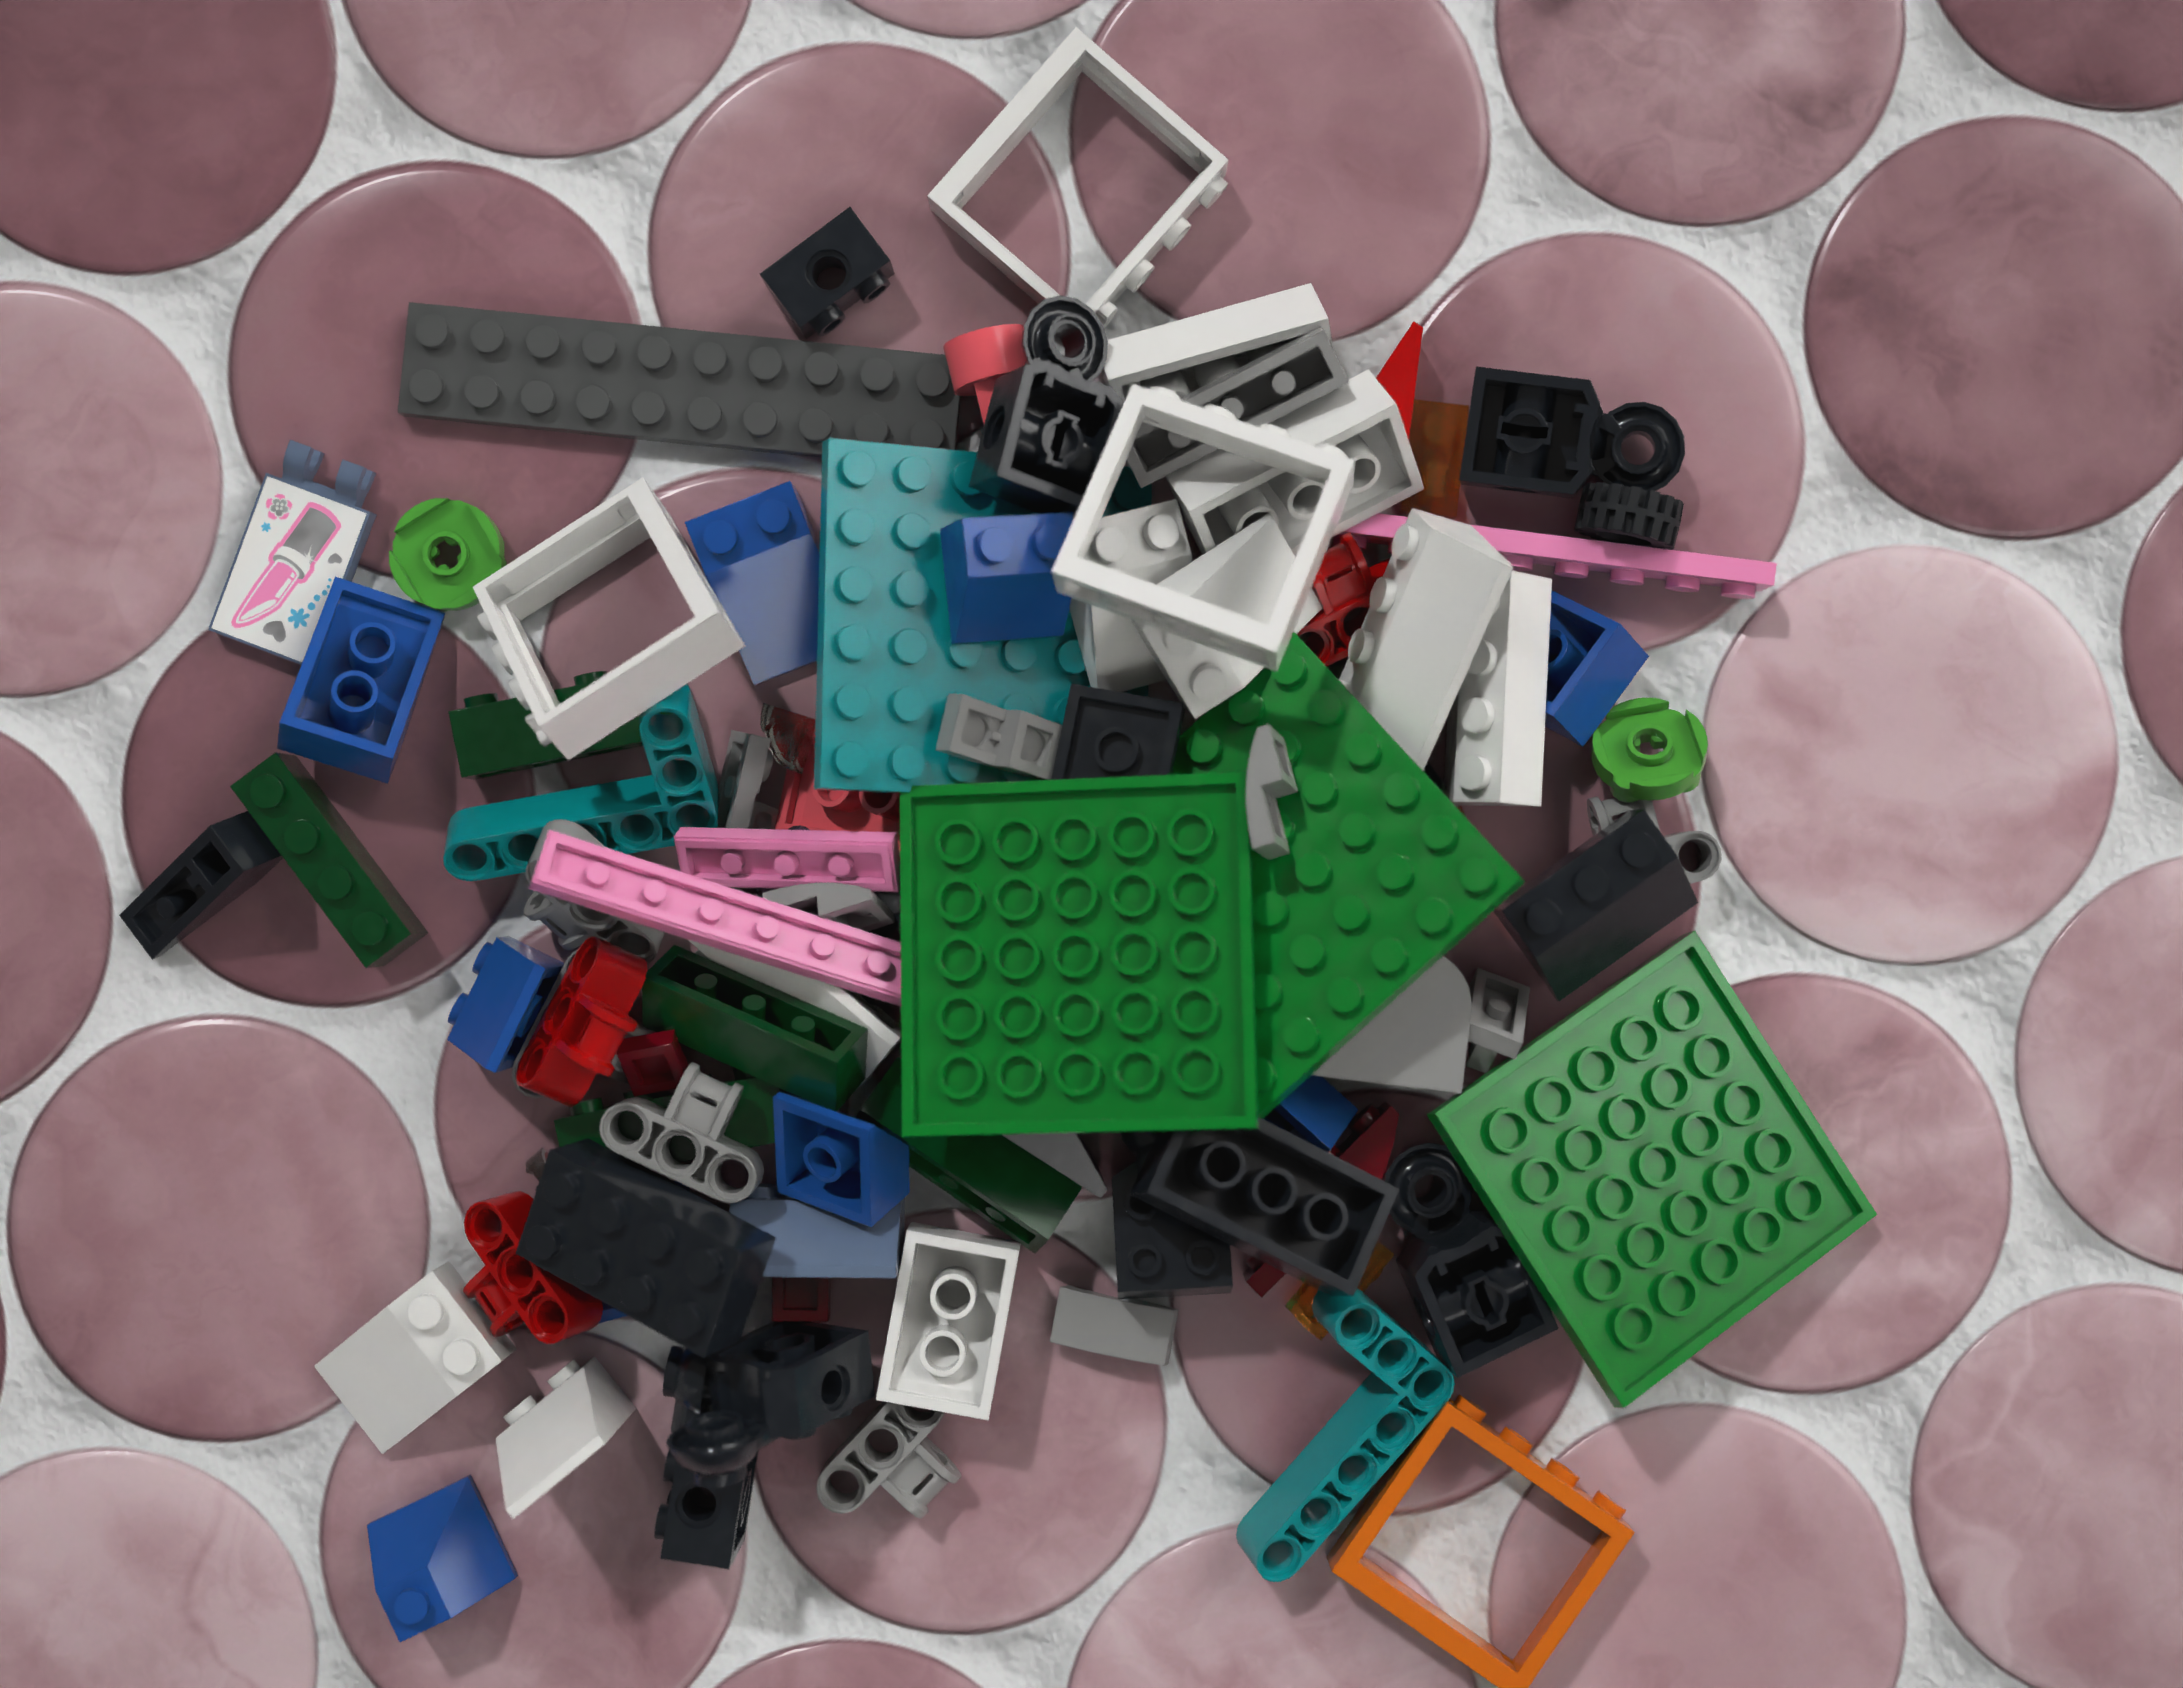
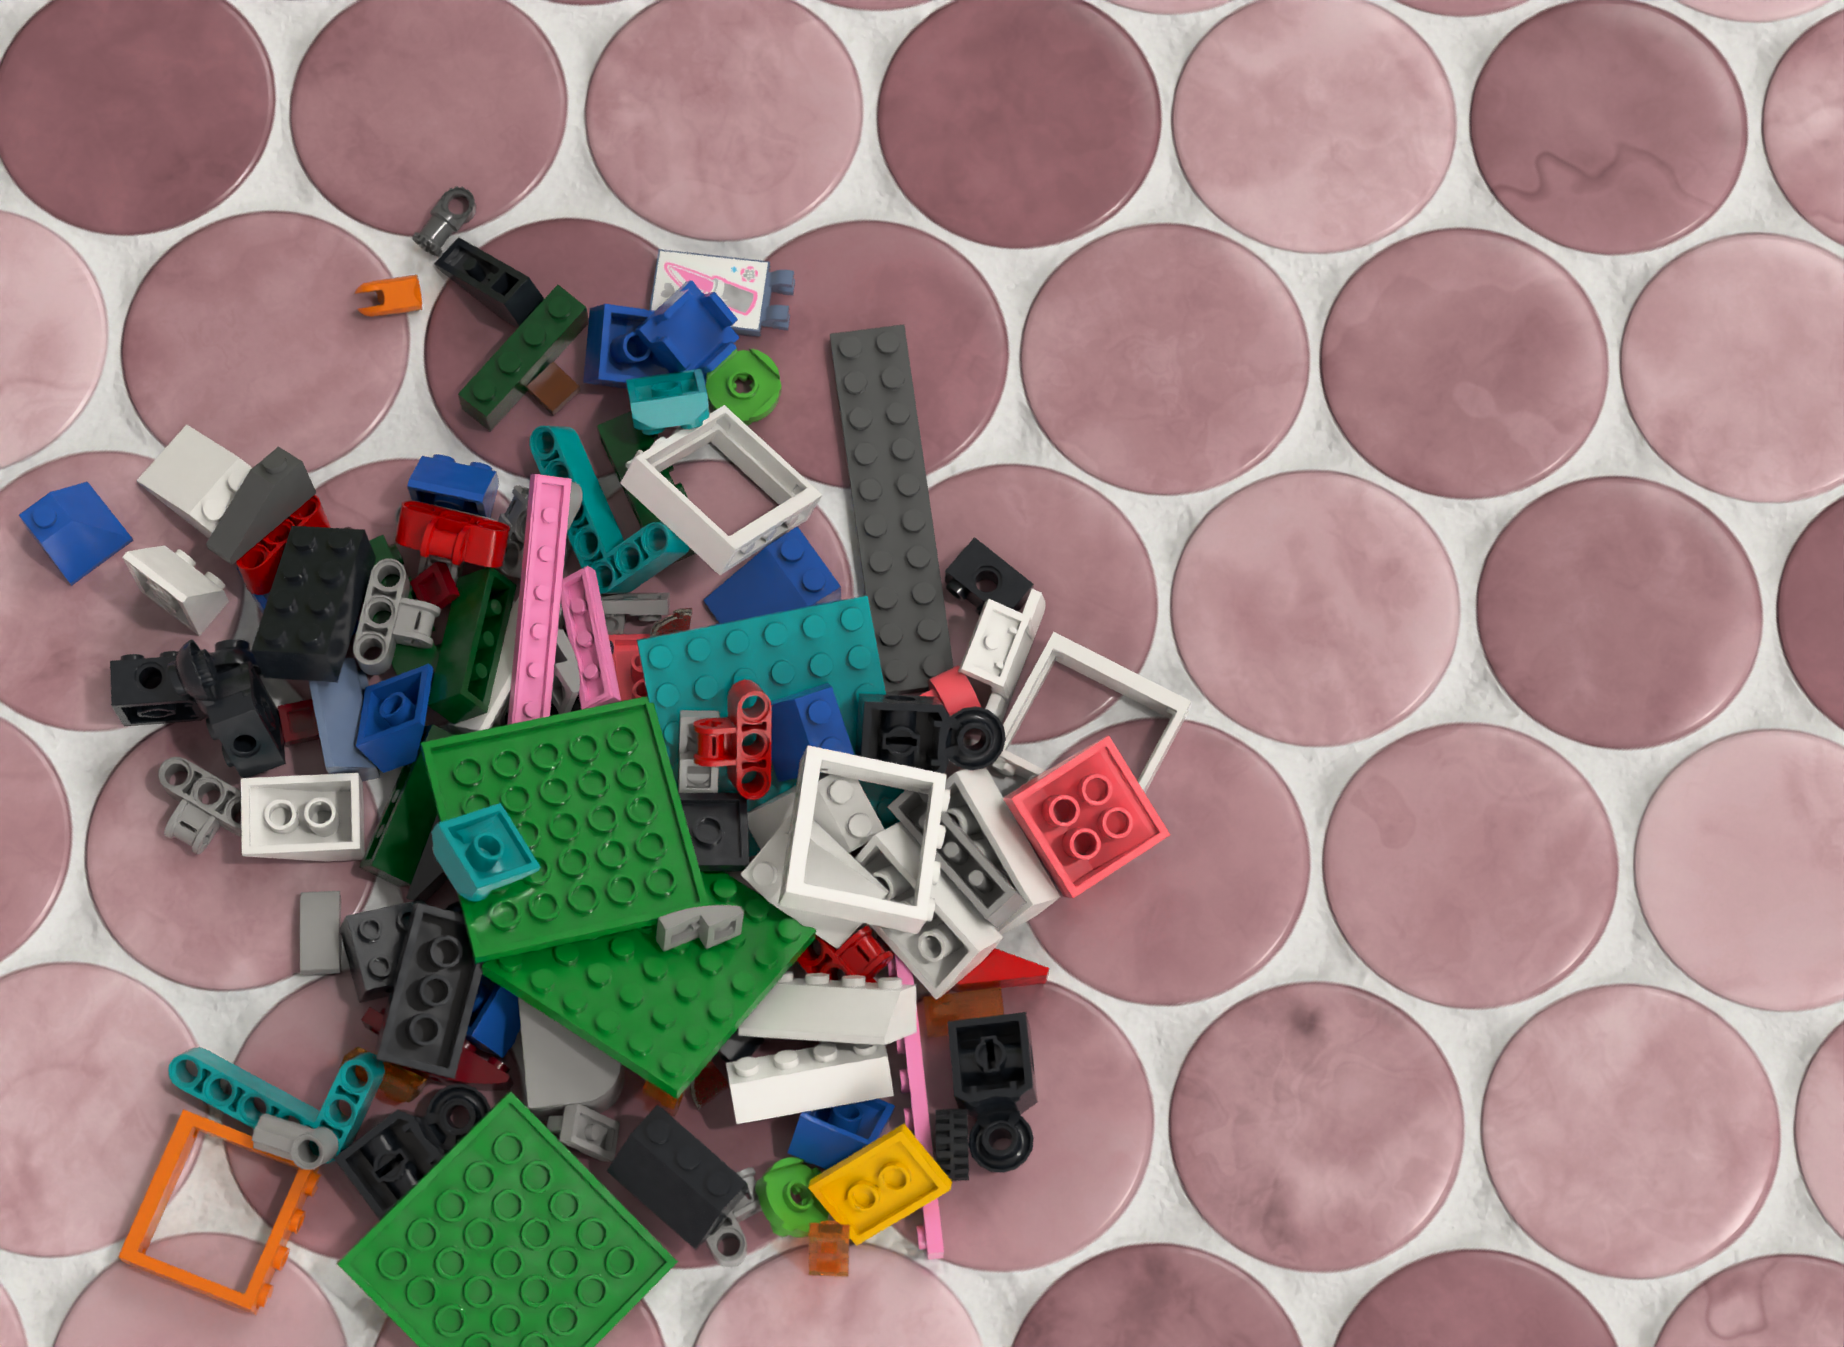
camera: 75 degrees right, 15 degrees down
(90, 931) = (444, 221): none -> dark grey connector
(186, 1026) = (394, 296): none -> orange piece
(352, 609) = (690, 330): none -> blue panel
(385, 828) = (553, 388): none -> reddish brown tile
(453, 662) = (668, 401): none -> teal slope
(469, 1289) = (262, 503): none -> dark grey slope
(934, 277) = (1001, 648): none -> white plate
(999, 691) = (721, 740): none -> red piece
(1102, 1083) = (482, 852): none -> teal slope
(1214, 214) = (1086, 817): none -> coral slope
(1435, 1414) = (292, 1141): none -> light grey piece
(1670, 626) = (880, 1184): none -> yellow plate
(1731, 717) = (829, 1248): none -> clear orange hinge

